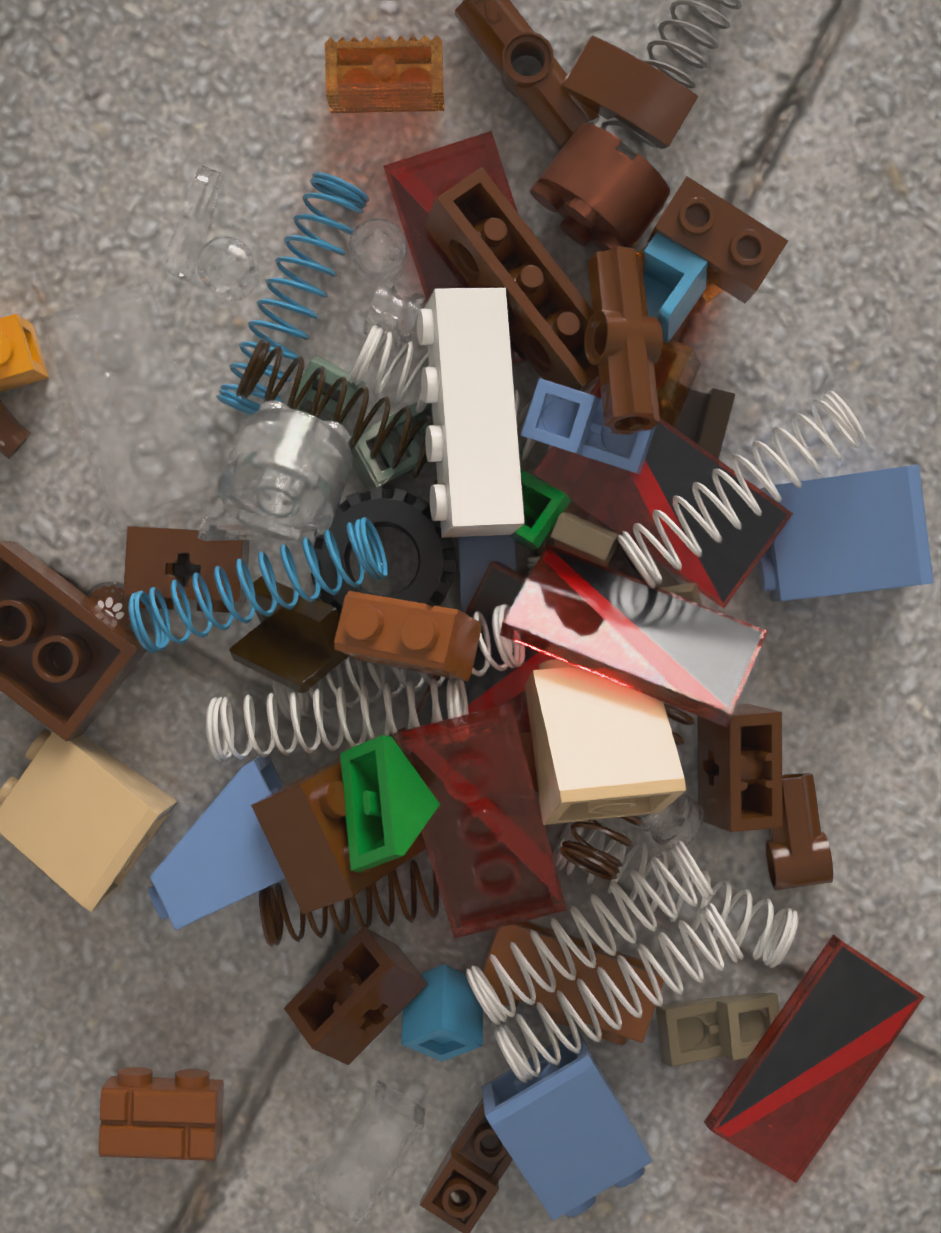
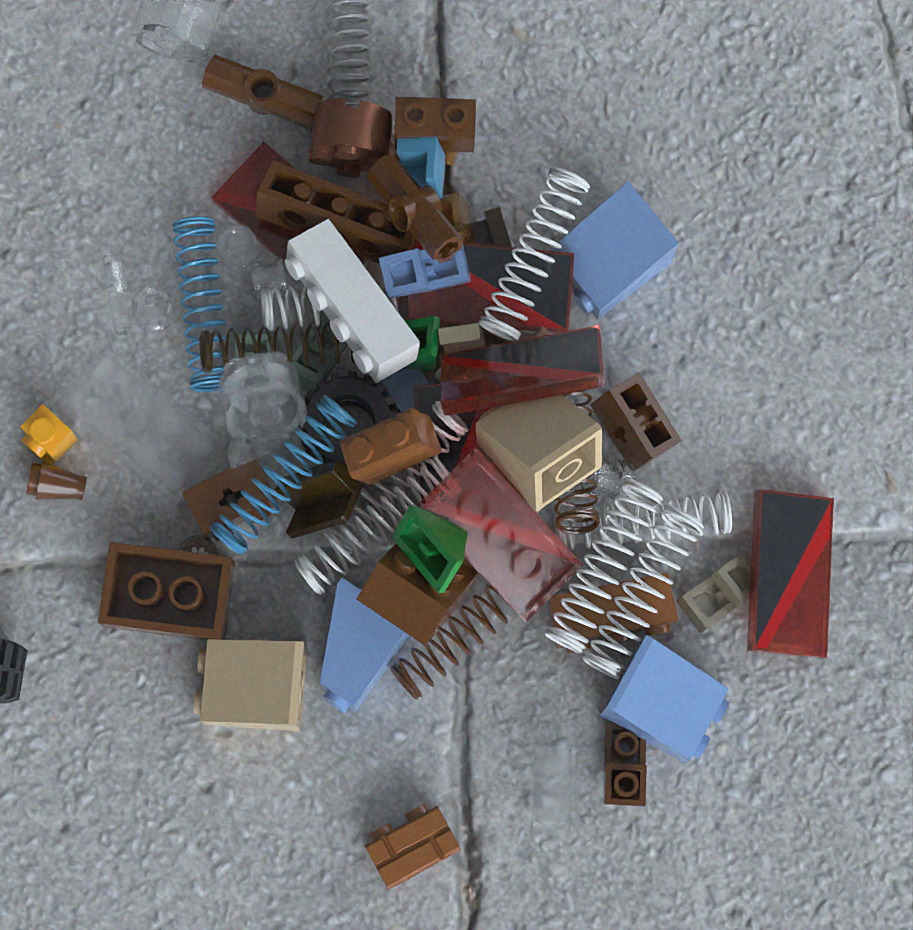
camera: 40 degrees left, 10 degrees down
(355, 996) = (487, 696): reddish brown brick -> none
(384, 75) = (183, 143): clear orange brick -> none
(443, 1016) = (548, 680): dark azure panel -> none
(629, 90) = (332, 69): reddish brown slope -> none
(799, 850) = (701, 454): reddish brown piece -> none

